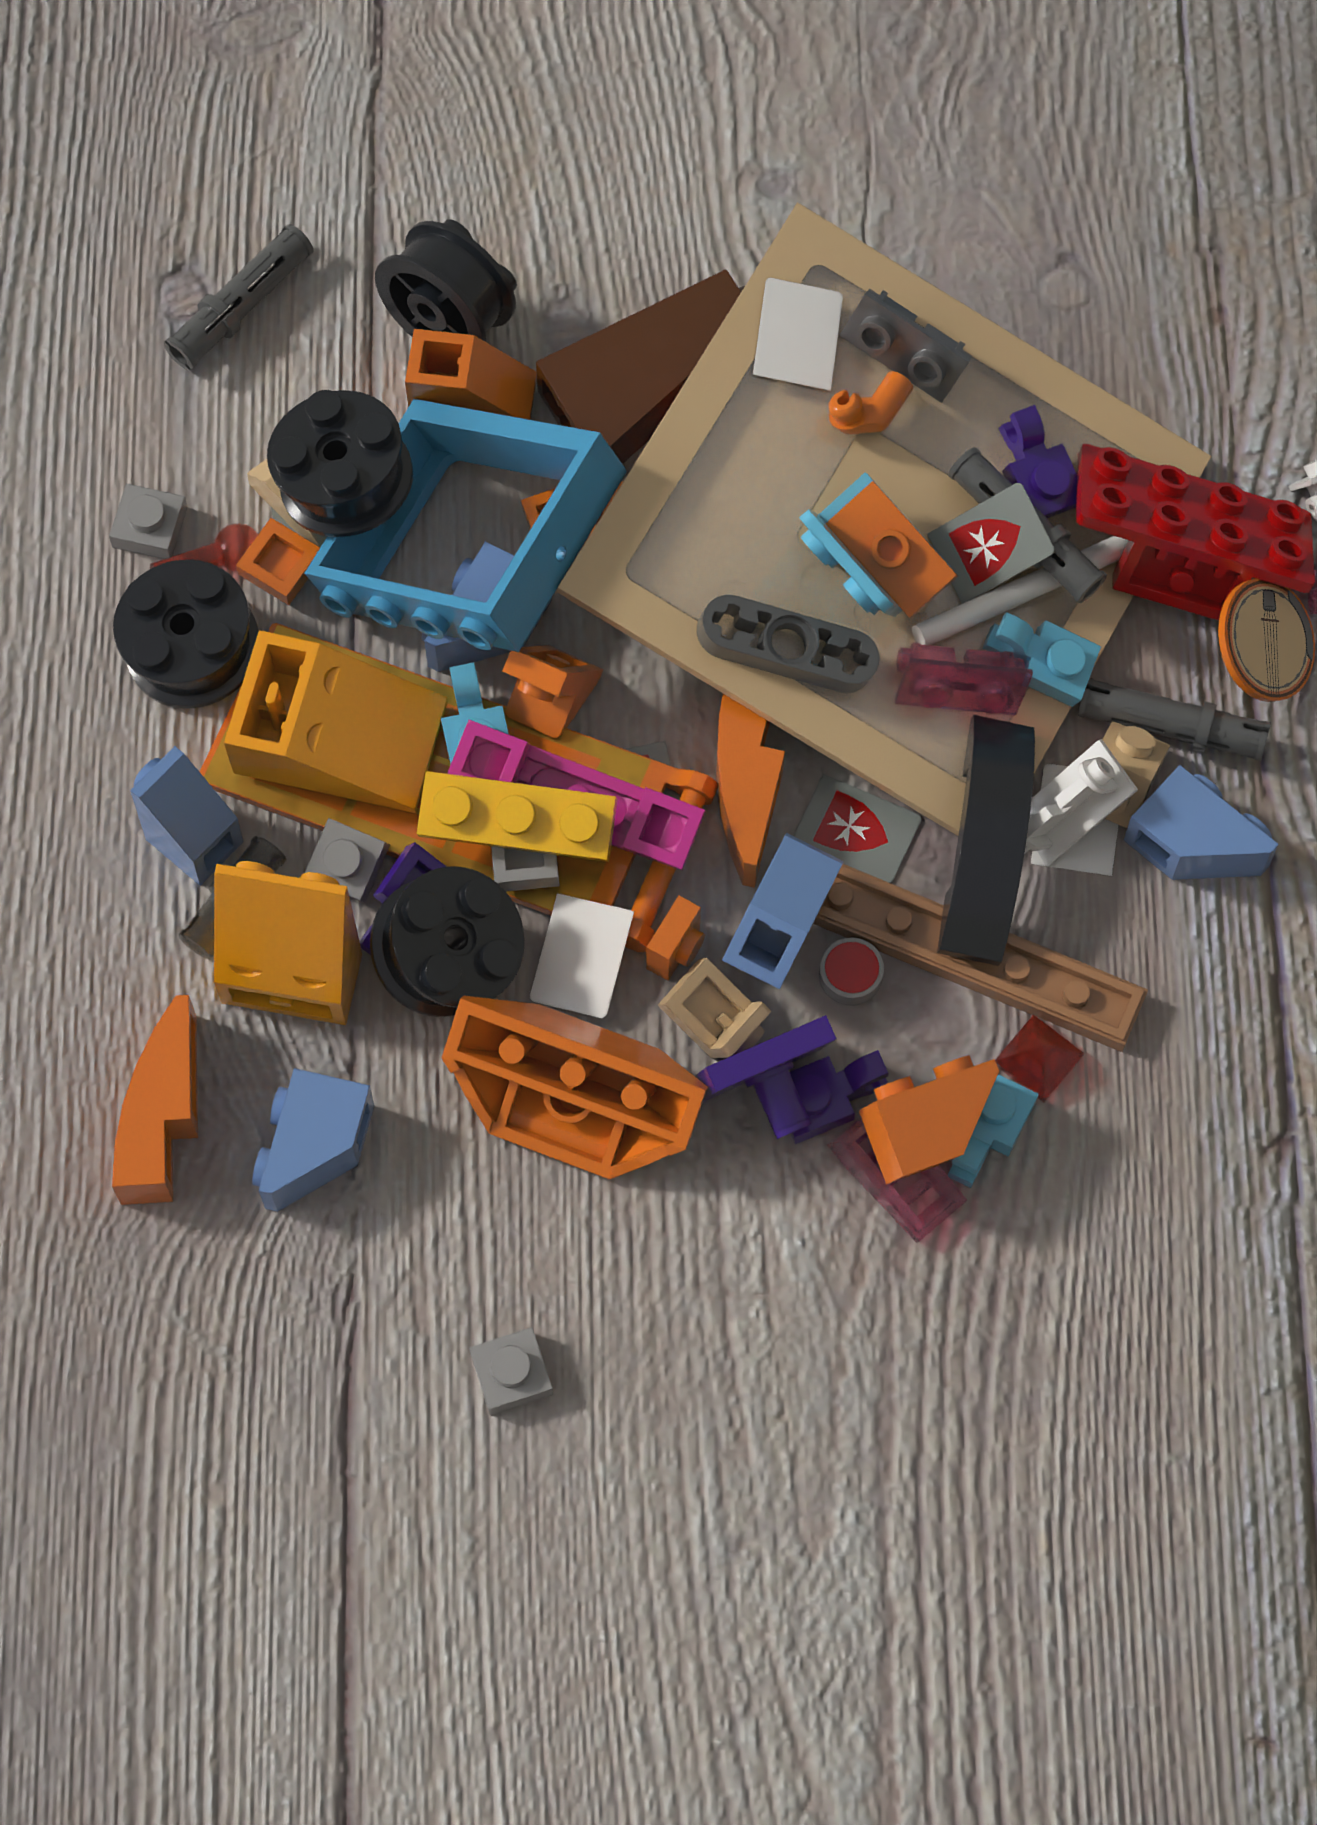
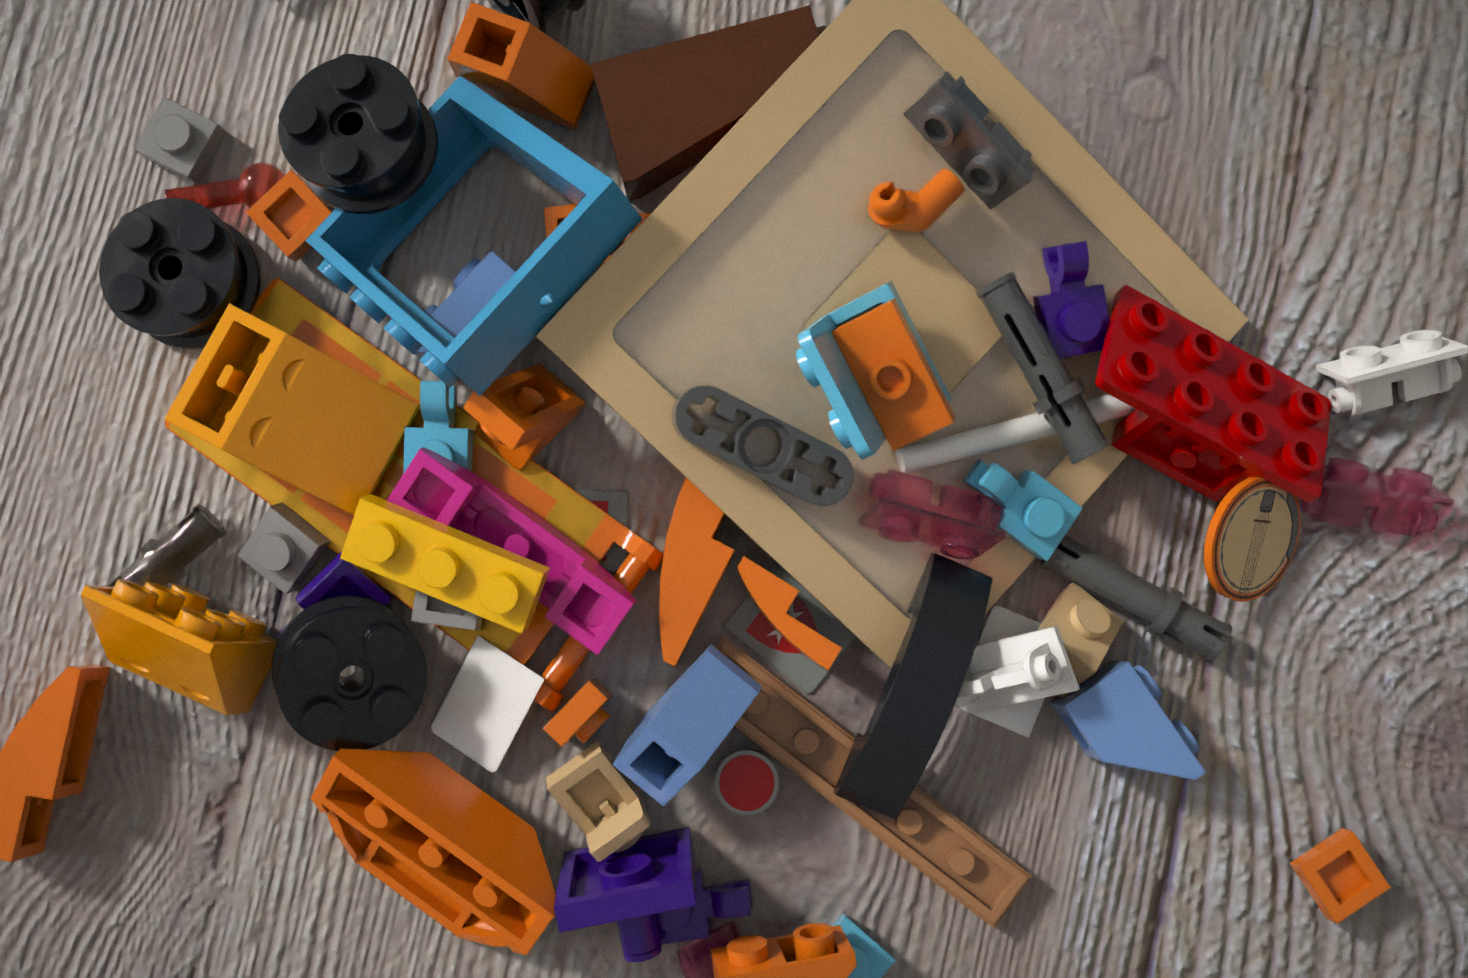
camera: 15 degrees right, 15 degrees up
(184, 815) = (122, 474): medium blue slope -> none
(316, 1136) = (183, 828): medium blue slope -> none
(798, 333) = (859, 103): white sticker -> none
(829, 795) = (773, 600): none -> orange slope
(992, 542) = (1002, 380): light grey sticker -> none
(1039, 1058) = (906, 914): clear red slope -> none

